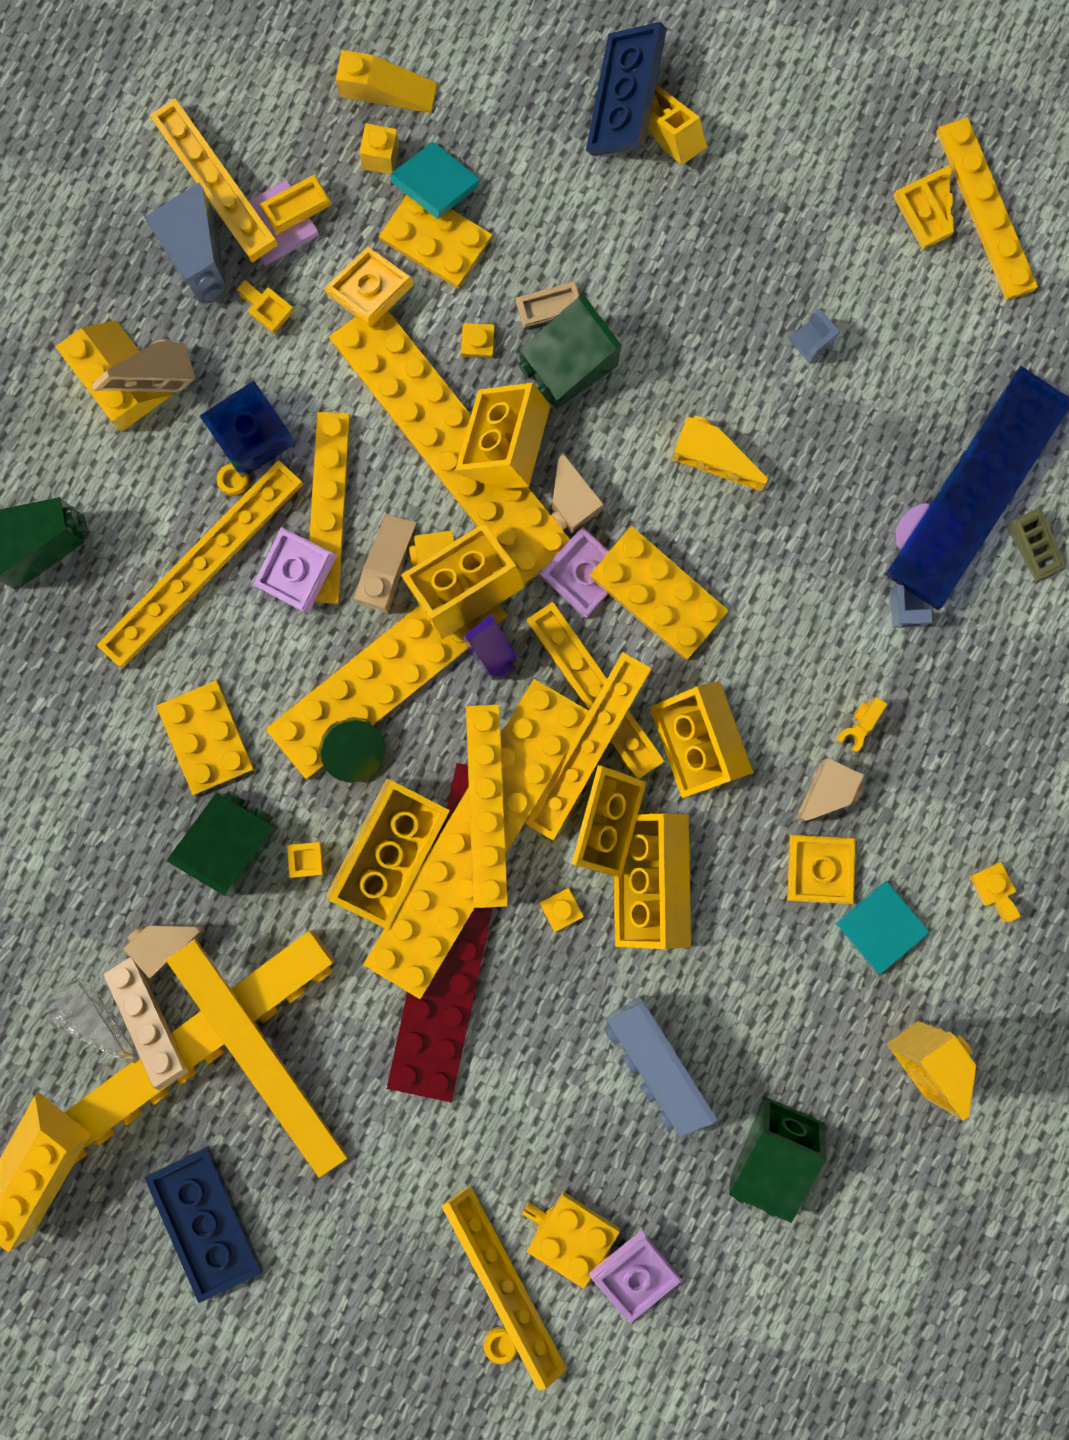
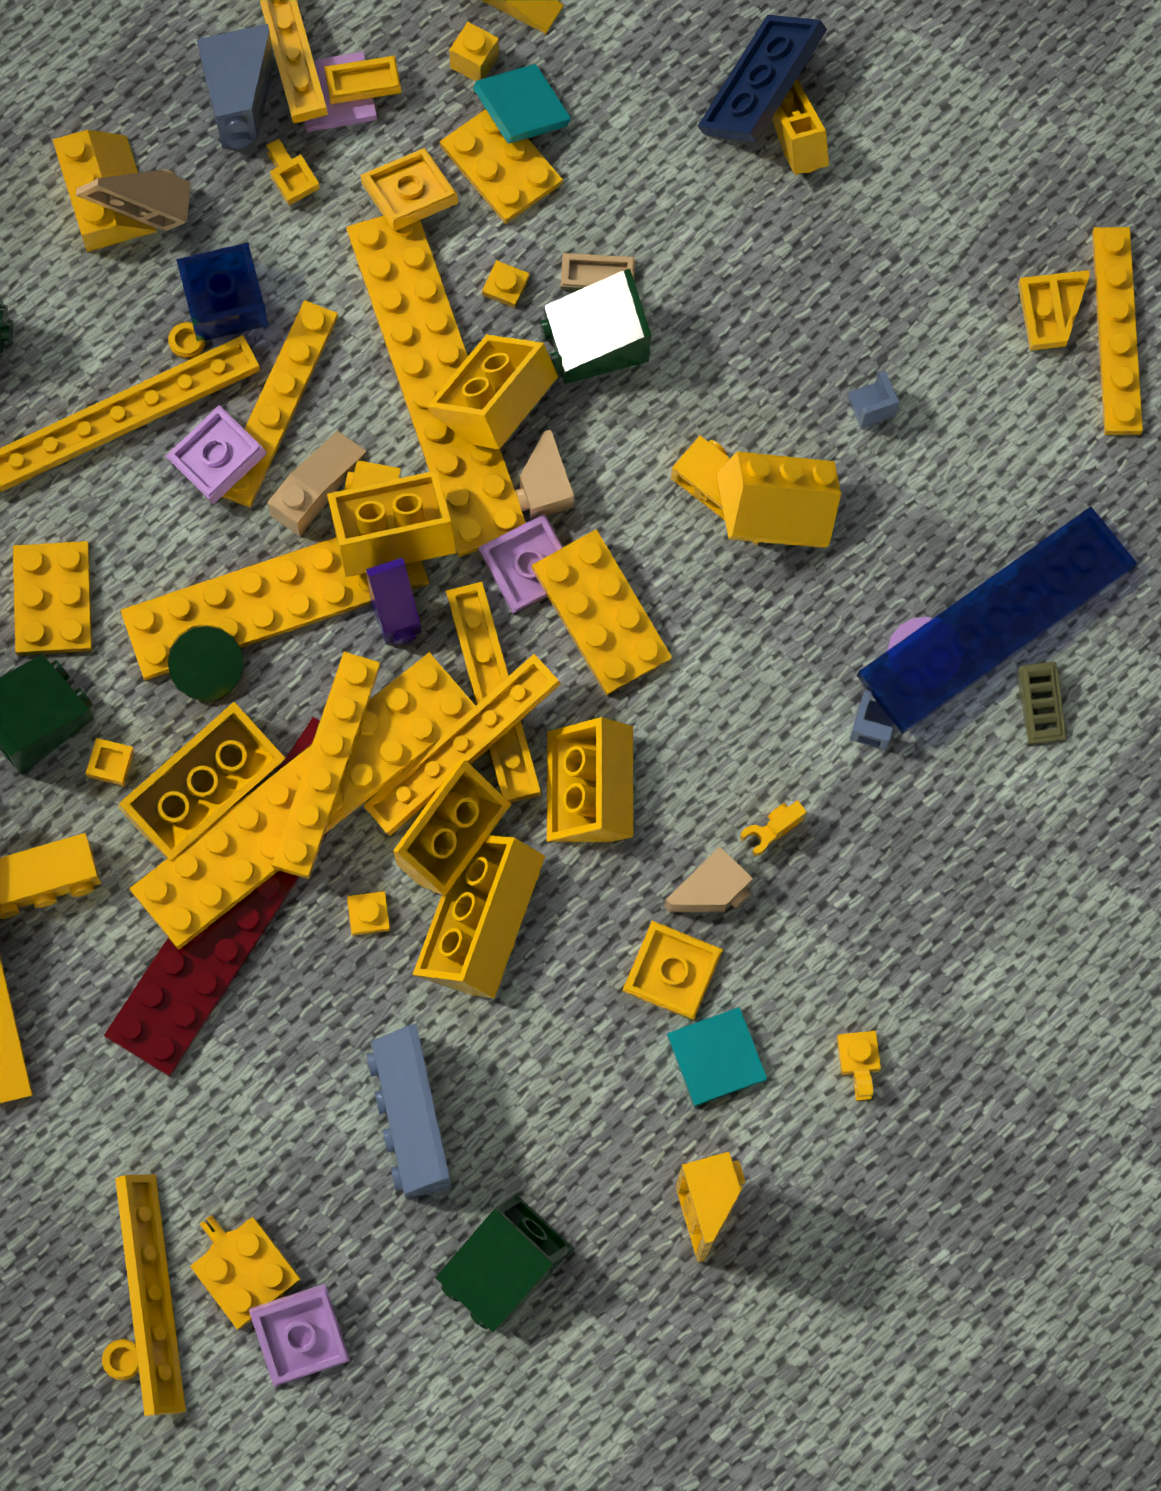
camera: 20 degrees right, 10 degrees down
(772, 449) = (779, 499): none -> yellow slope

